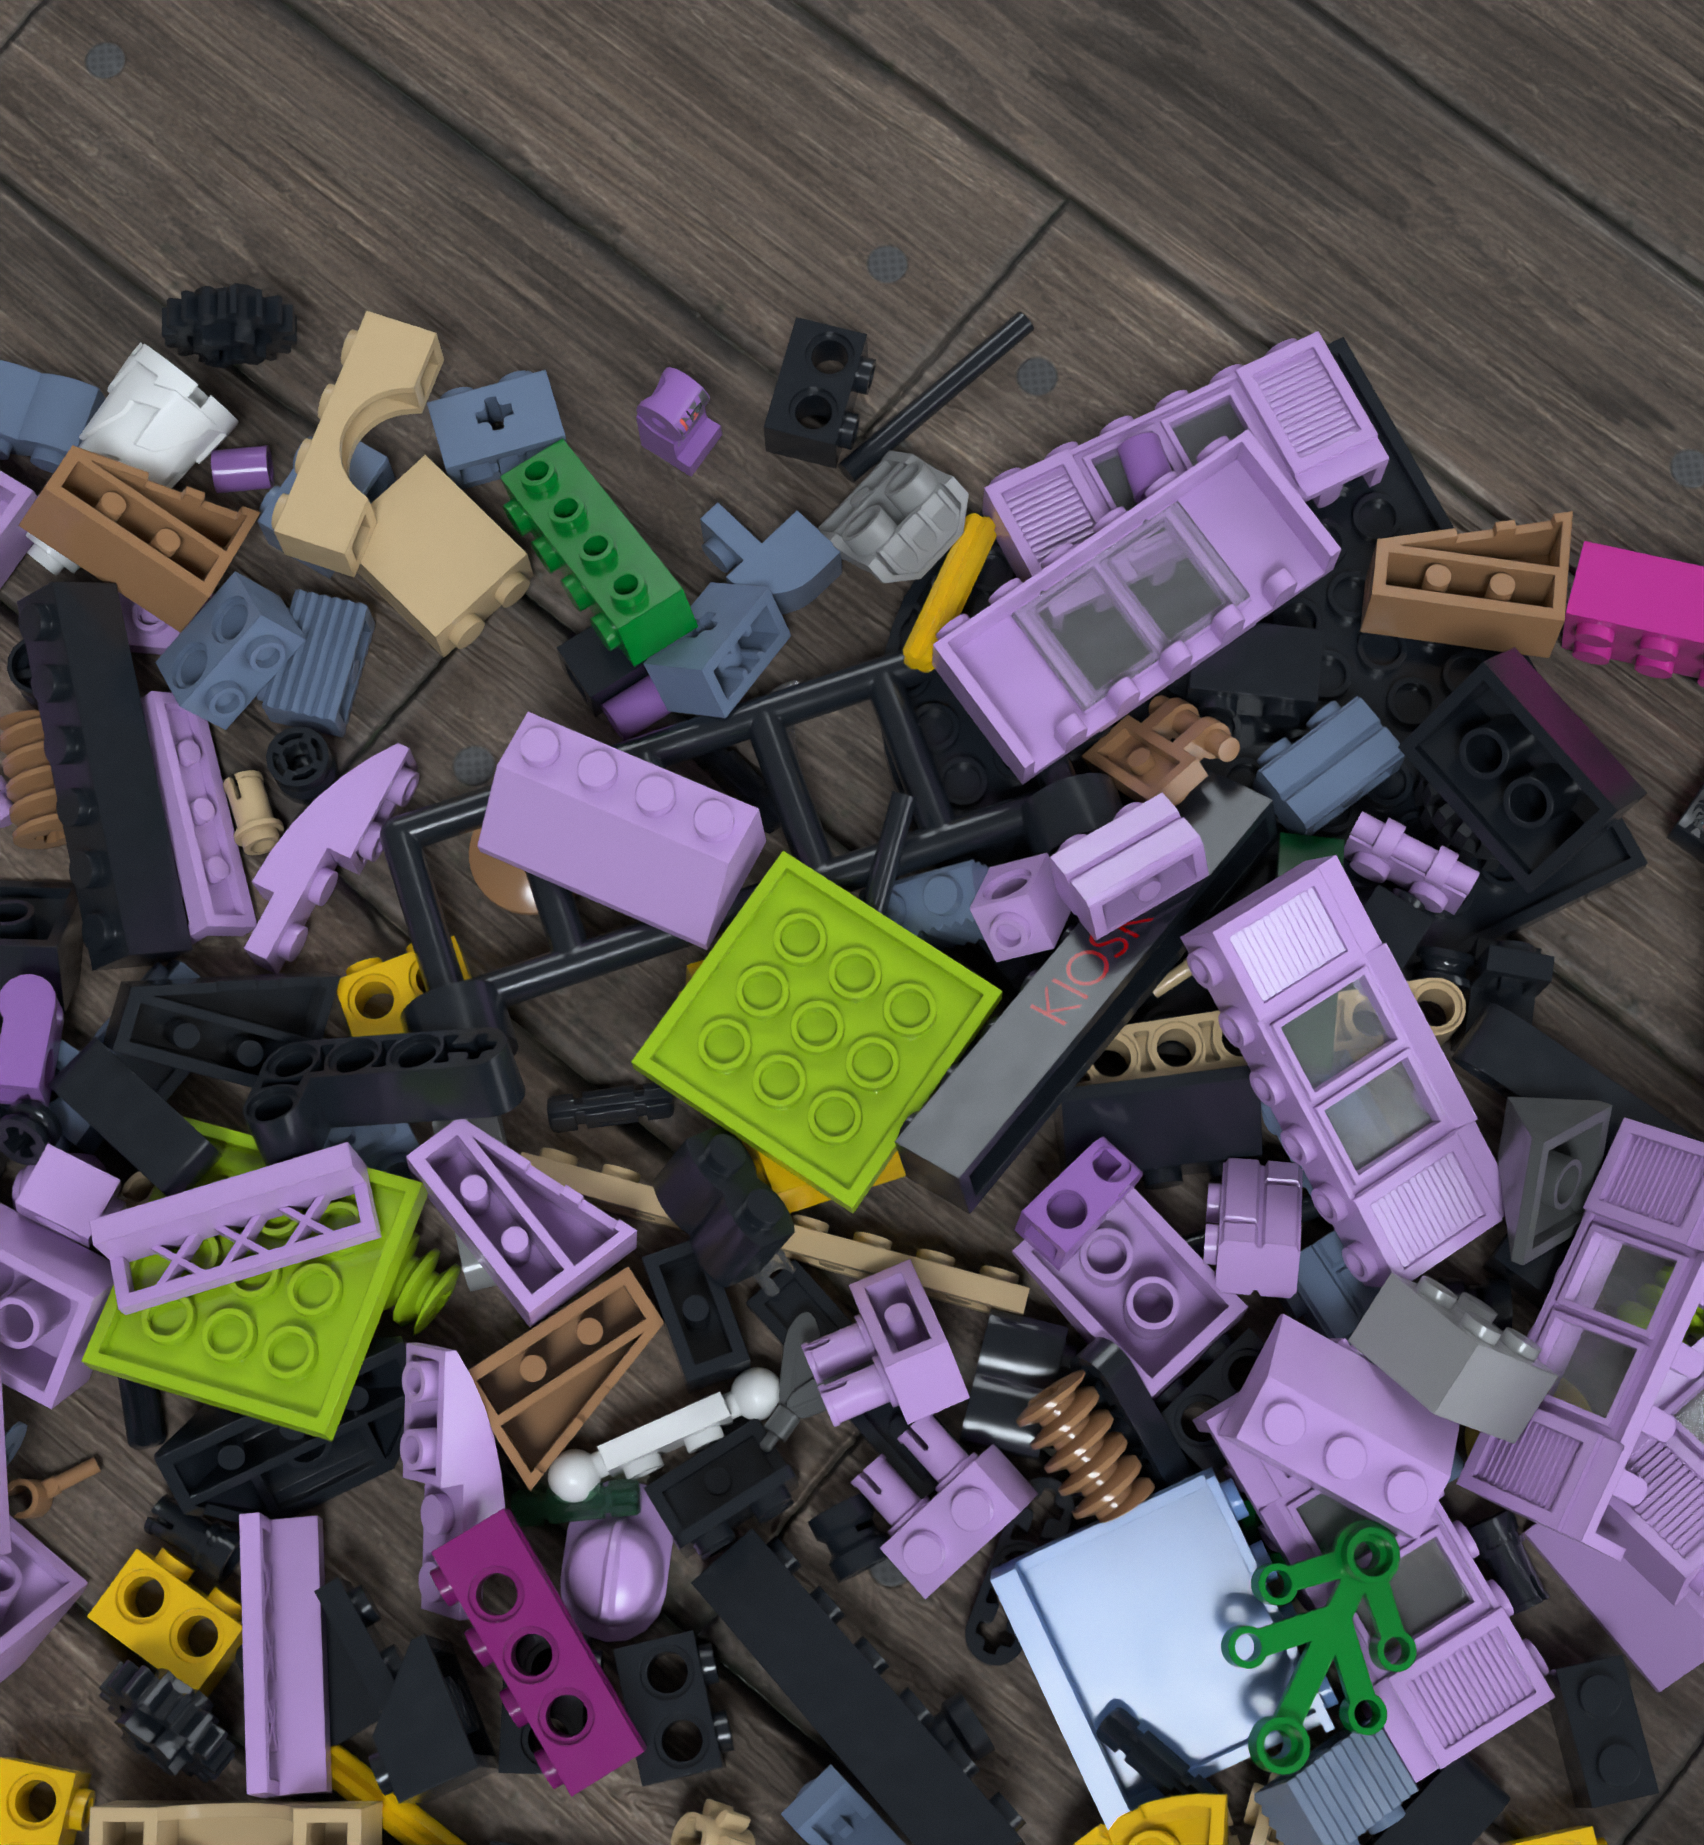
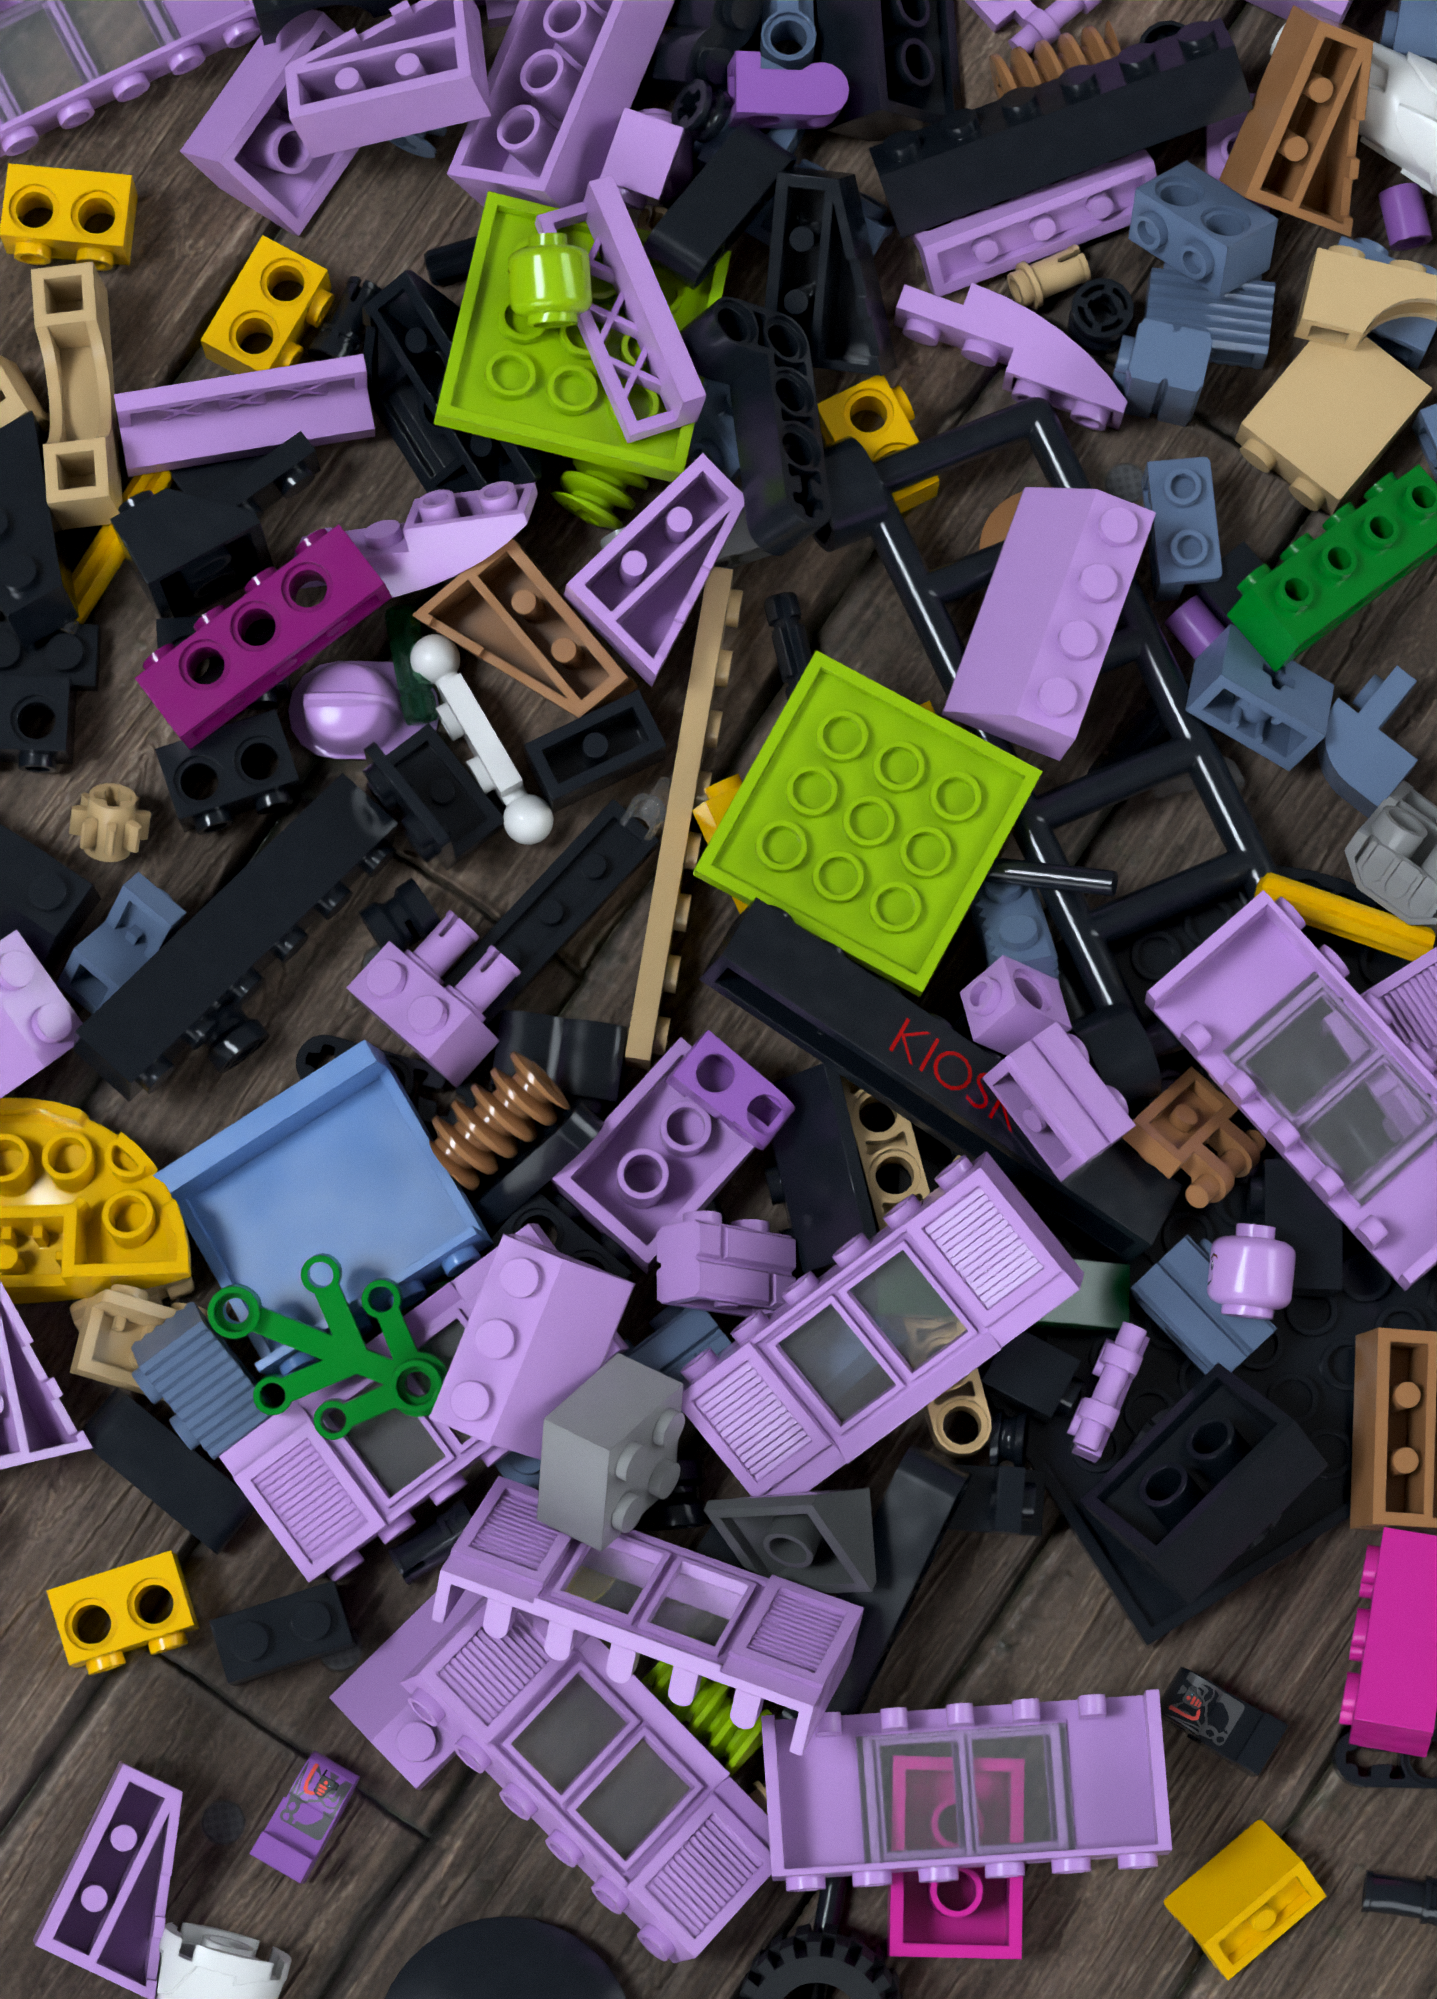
camera: 80 degrees right, 5 degrees up
(45, 1490) = (377, 183): medium nougat hand -> none
(167, 1721) = (175, 319): black gear -> none
(197, 1296) = (550, 281): none -> lime head
(371, 701) = (1162, 371): none -> sand blue brick
(502, 697) = (1185, 529): none -> sand blue bracket
(723, 1206) = (682, 765): black brick -> none
(797, 1386) = (533, 857): dark grey piece -> none
(903, 1340) = (578, 941): lavender brick -> none
(1150, 1756) = (222, 1211): black axle -> none
(1309, 706) = (1251, 1272): none -> lavender head

